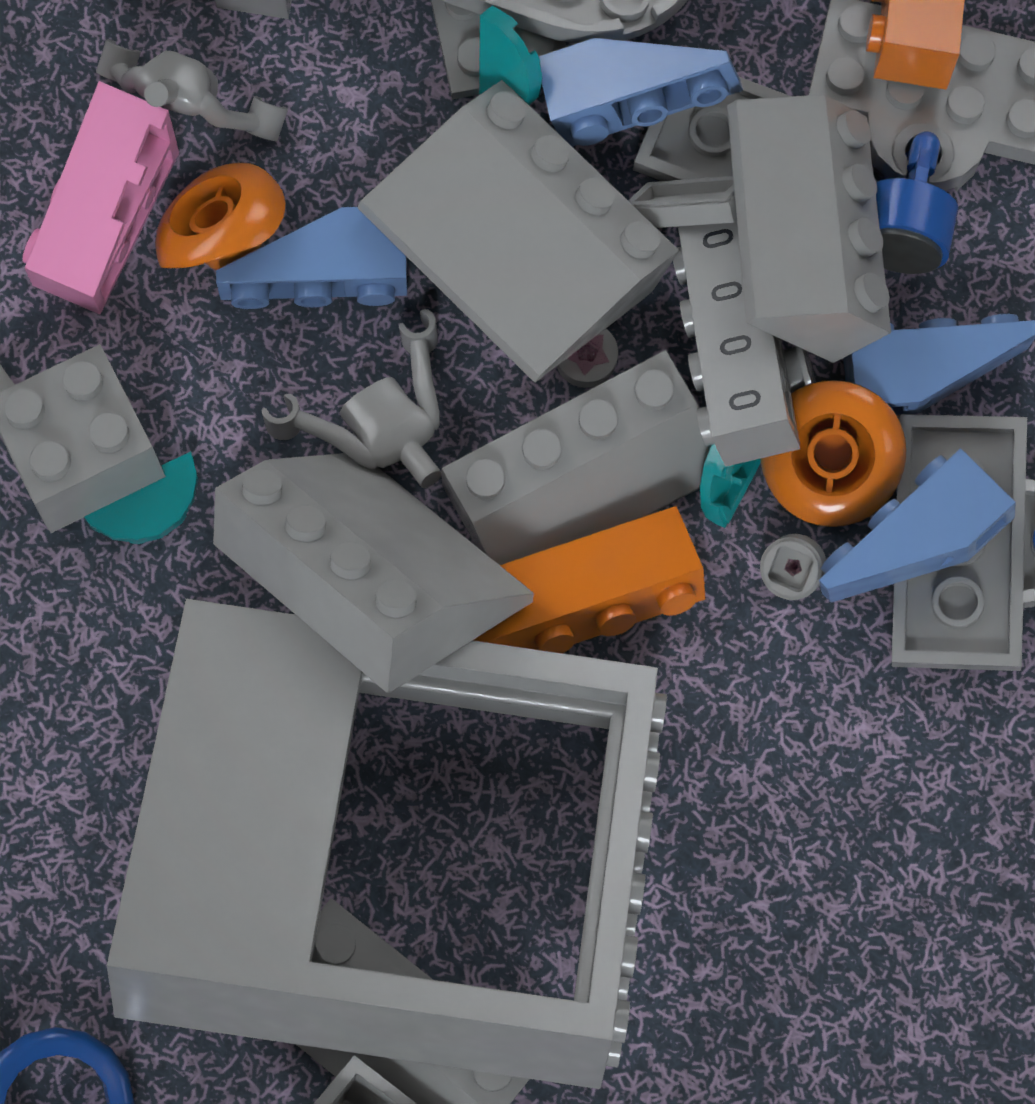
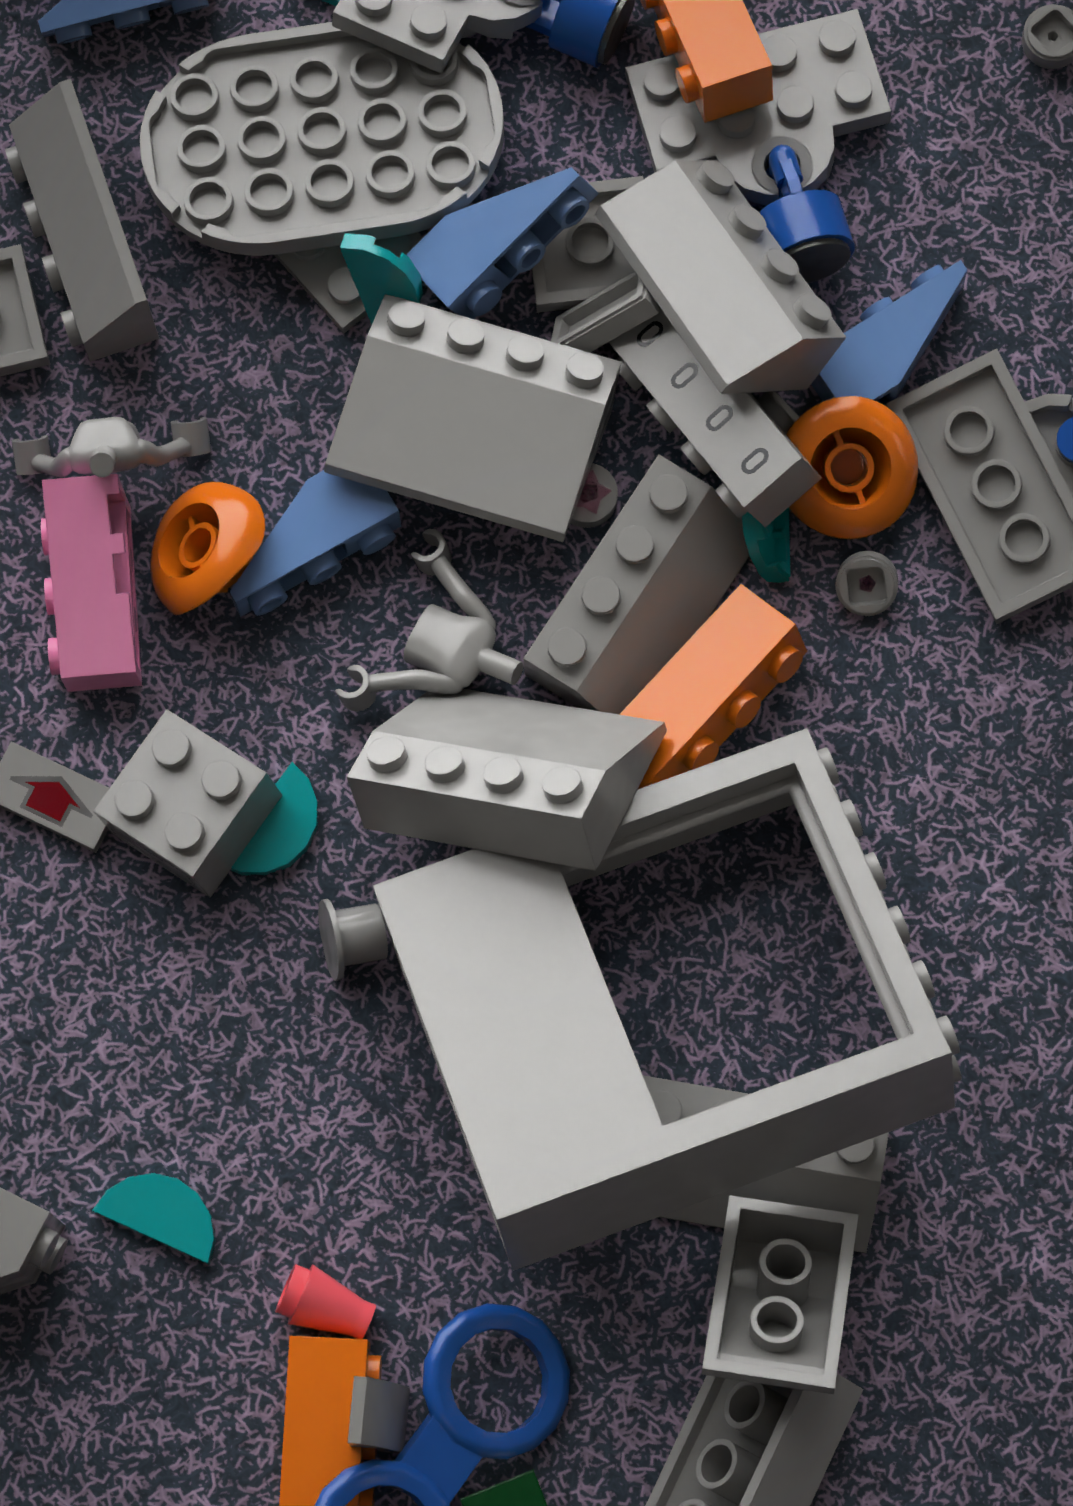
camera: 20 degrees left, 0 degrees up
(150, 635) = (351, 936): none -> light grey piece
(932, 529) = (972, 485): medium blue slope -> none

